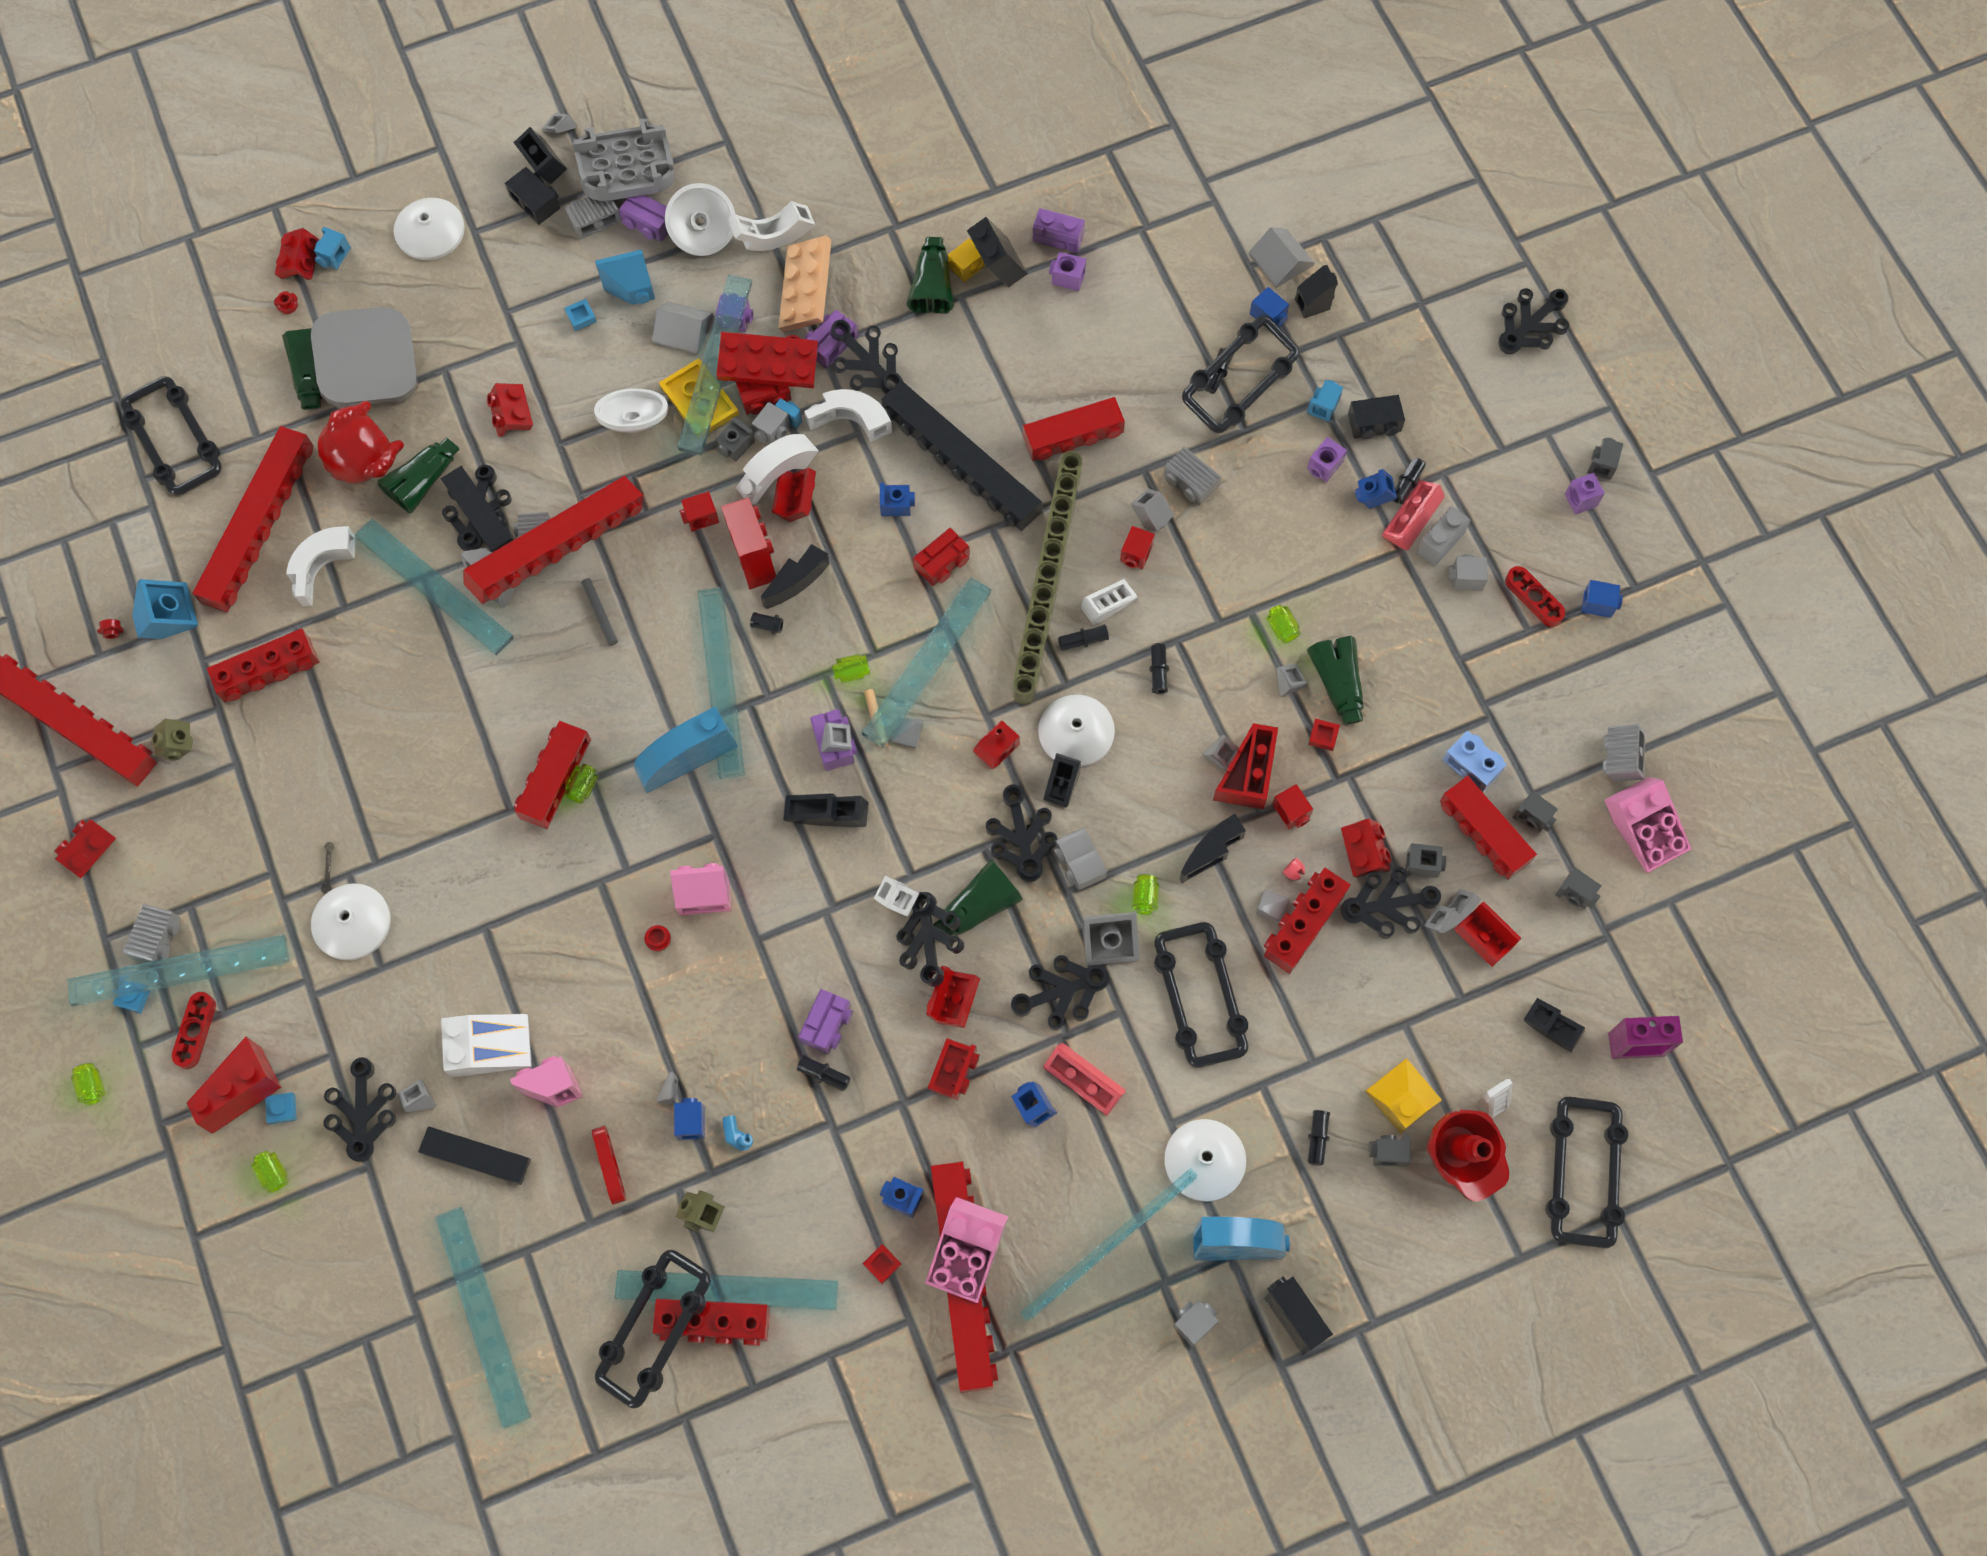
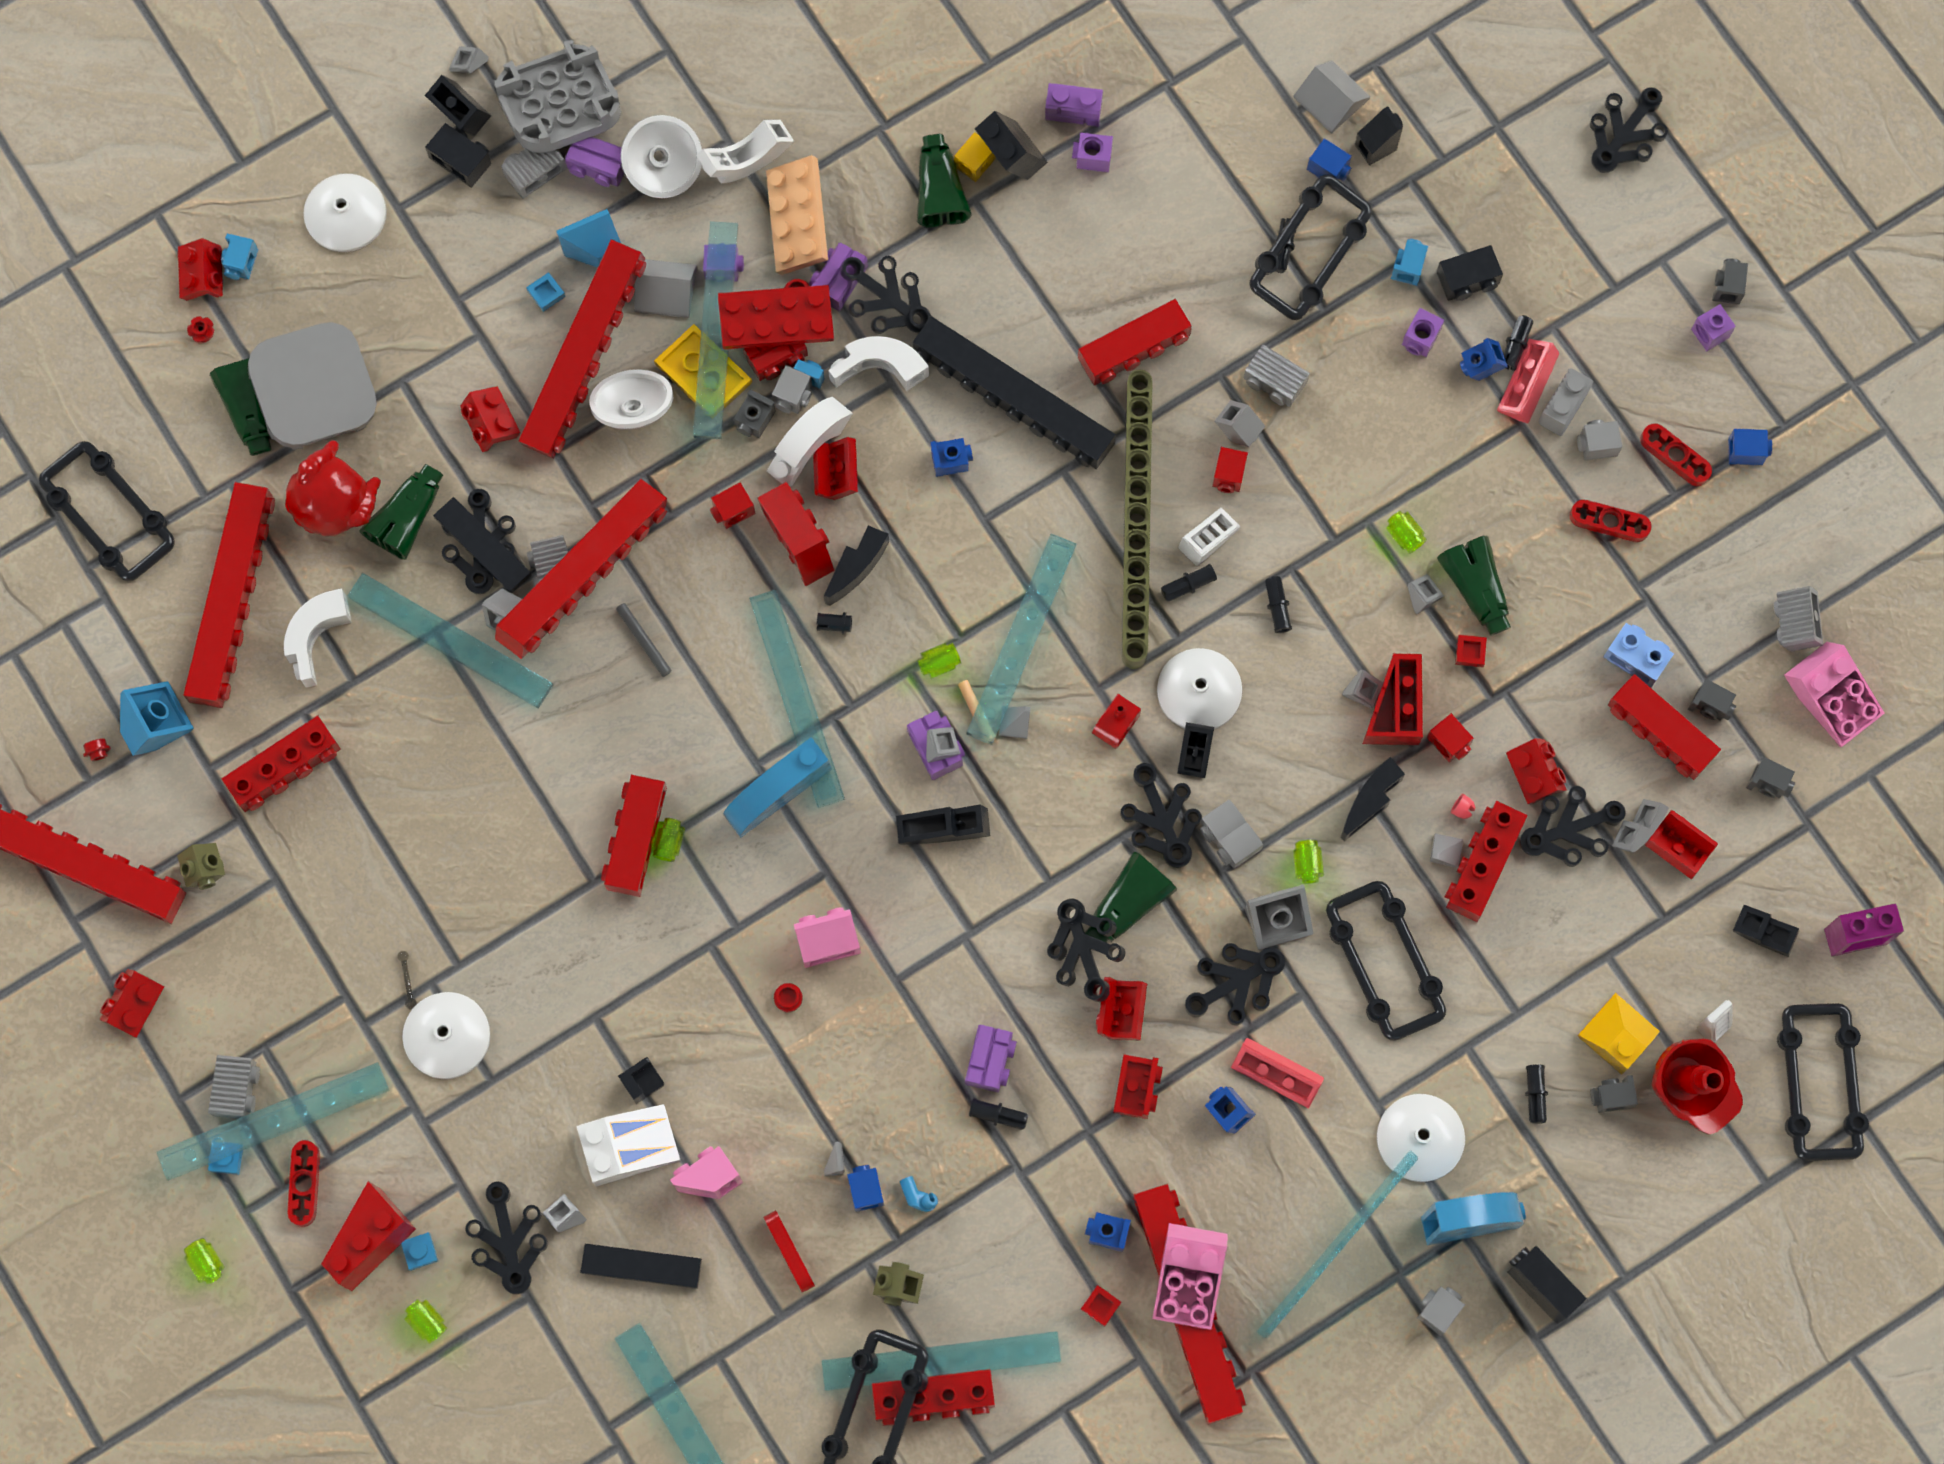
camera: 10 degrees left, 5 degrees up
(511, 989) = (641, 1080): none -> black panel
(598, 362) = (582, 349): none -> red brick
(896, 896) = (1039, 908): white brick -> none
(942, 557) = (1015, 515): red brick -> none
(1429, 853) = (1609, 766): dark grey brick -> none
(1481, 657) = (1620, 514): none -> red beam

